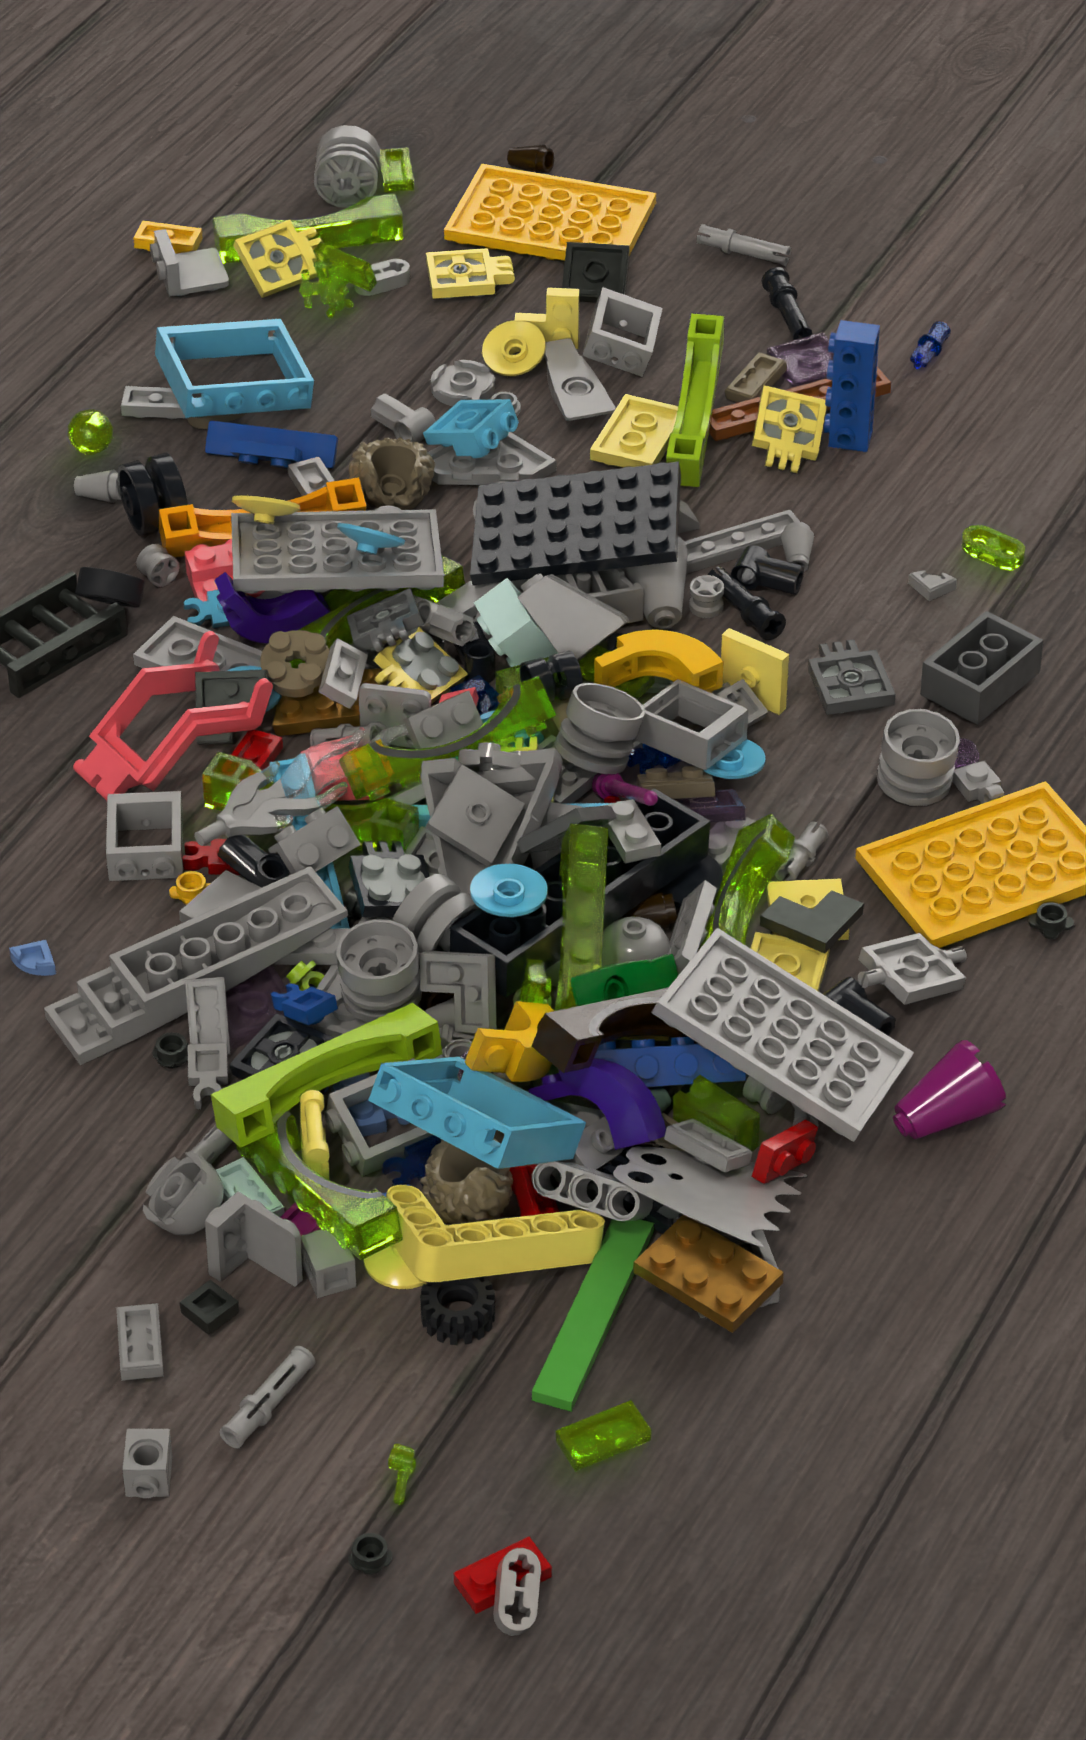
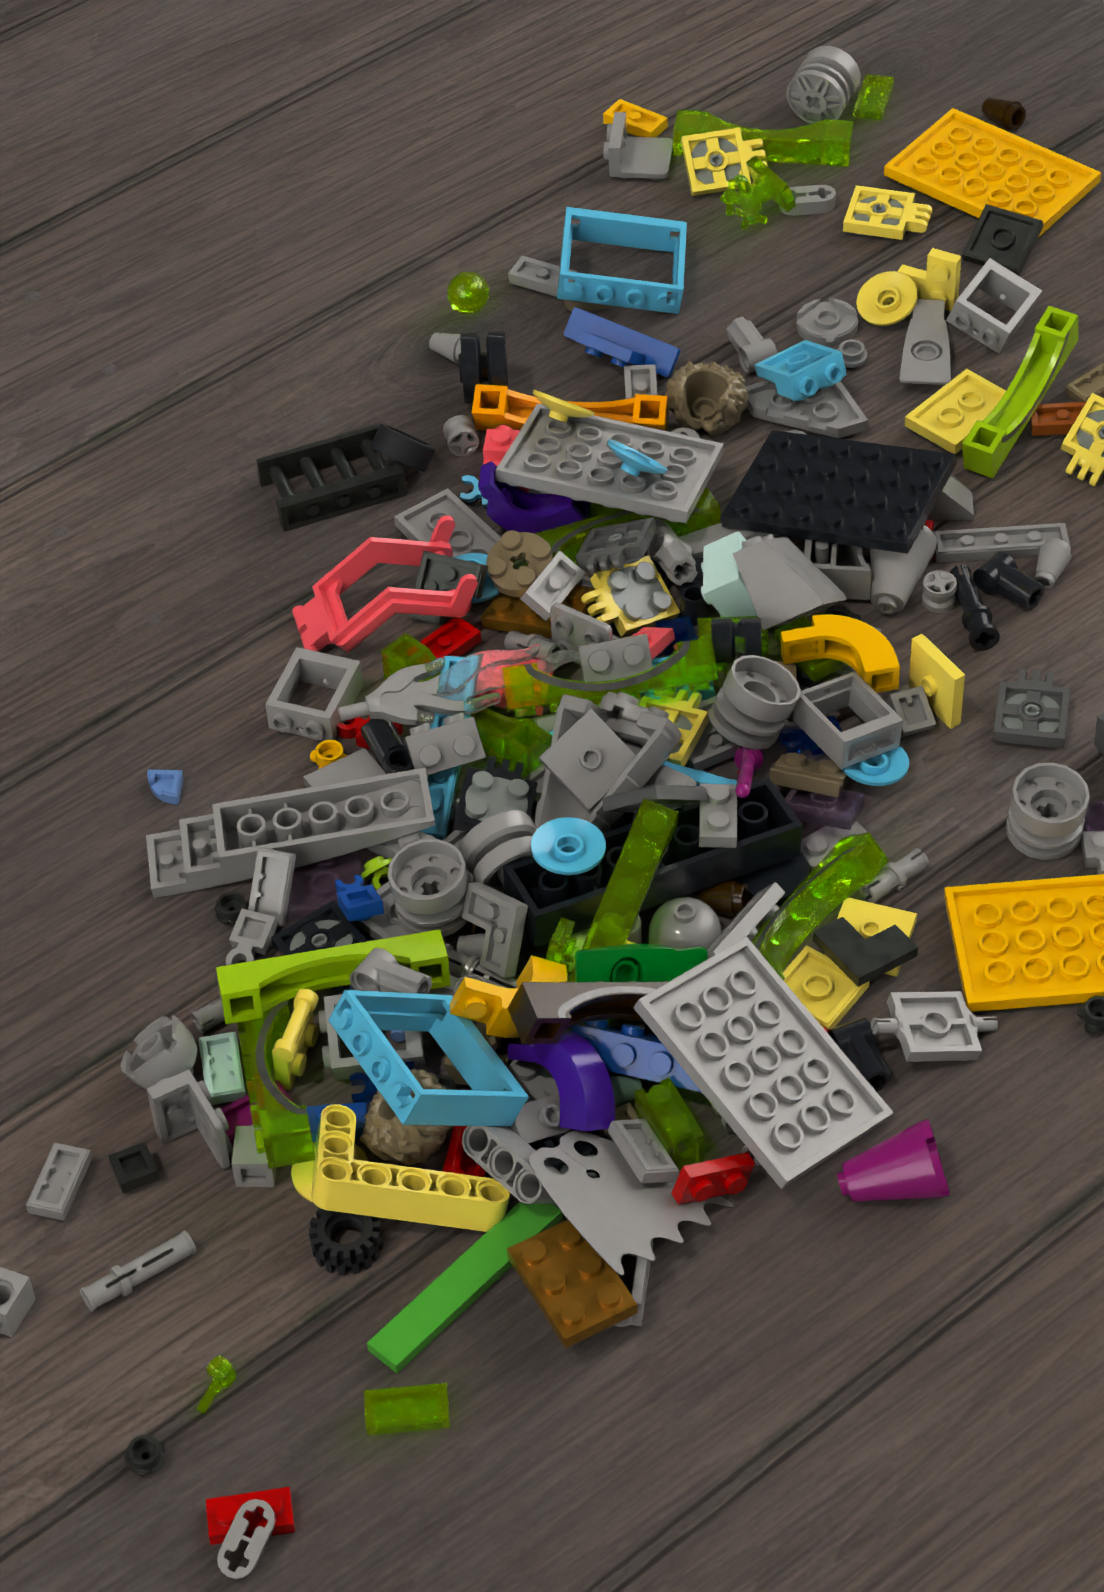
camera: 25 degrees right, 5 degrees up
(380, 1047) = (383, 974): none -> light grey piece

